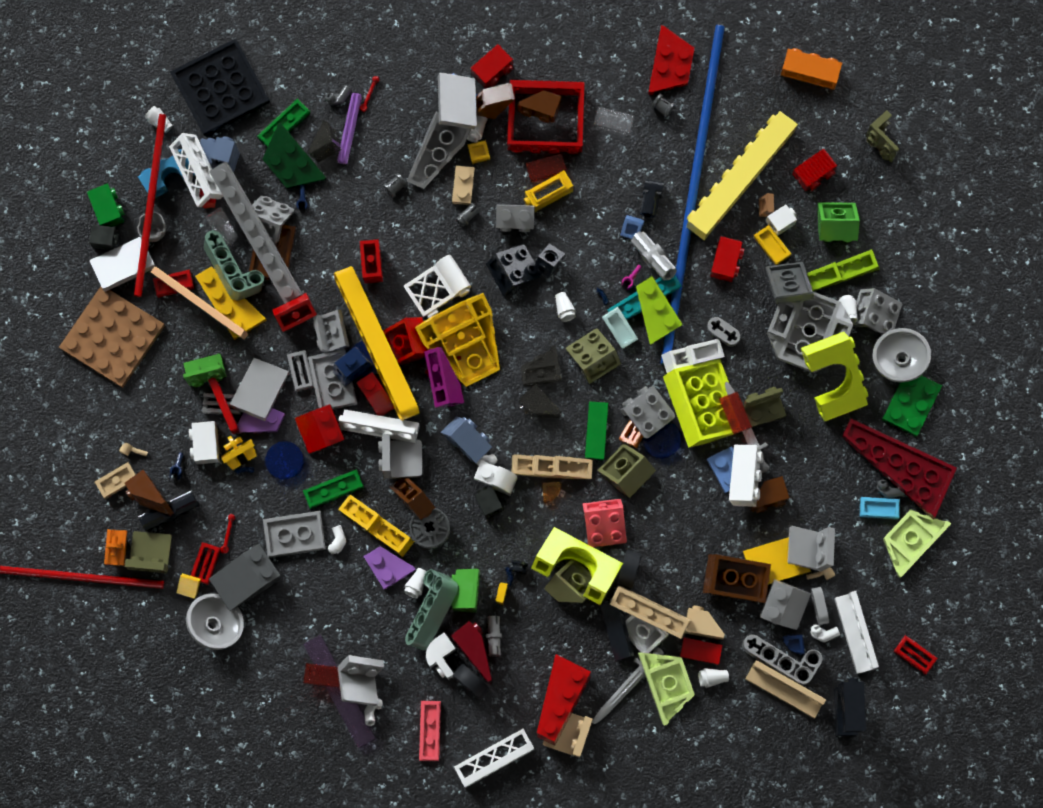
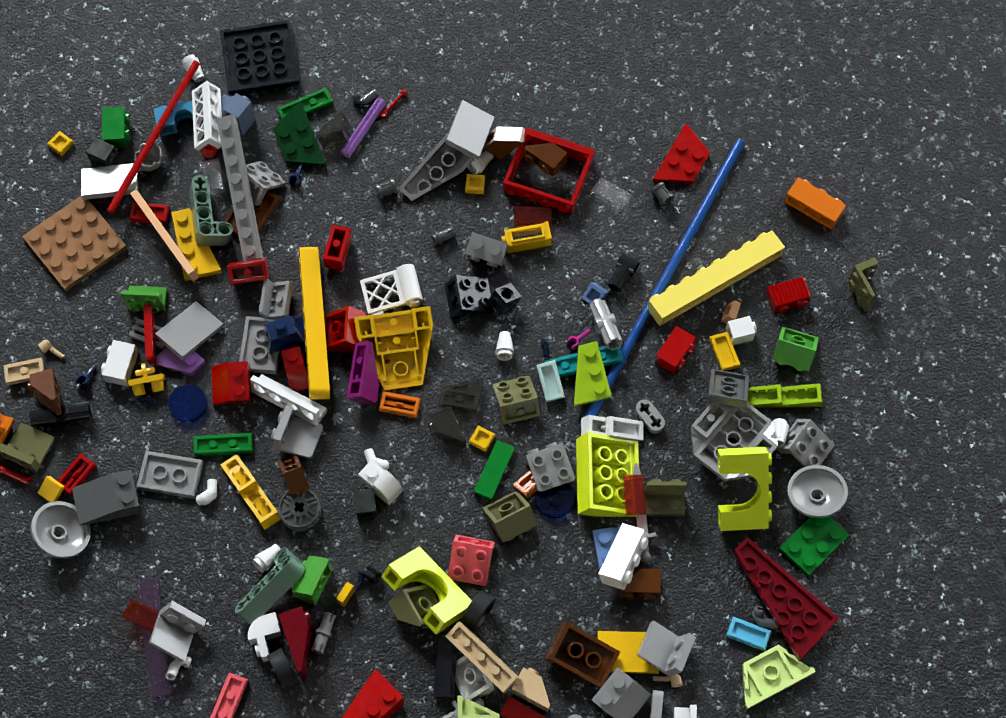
camera: 15 degrees right, 10 degrees down
(57, 239) = (60, 143): none -> yellow tile
(224, 549) = (99, 466): red hinge -> none
(304, 386) = (233, 341): light grey tile -> none
(387, 567) = (246, 534): medium lavender wing -> none
(463, 185) = (449, 208): tan plate -> none
(463, 435) = (365, 435): sand blue brick -> none
(486, 396) = (413, 414): none -> orange tile
(492, 67) = (514, 112): red brick -> none
(551, 490) = (430, 512): clear orange tile -> none
(552, 467) = (439, 490): tan slope -> none
(574, 404) = (481, 438): none -> yellow tile

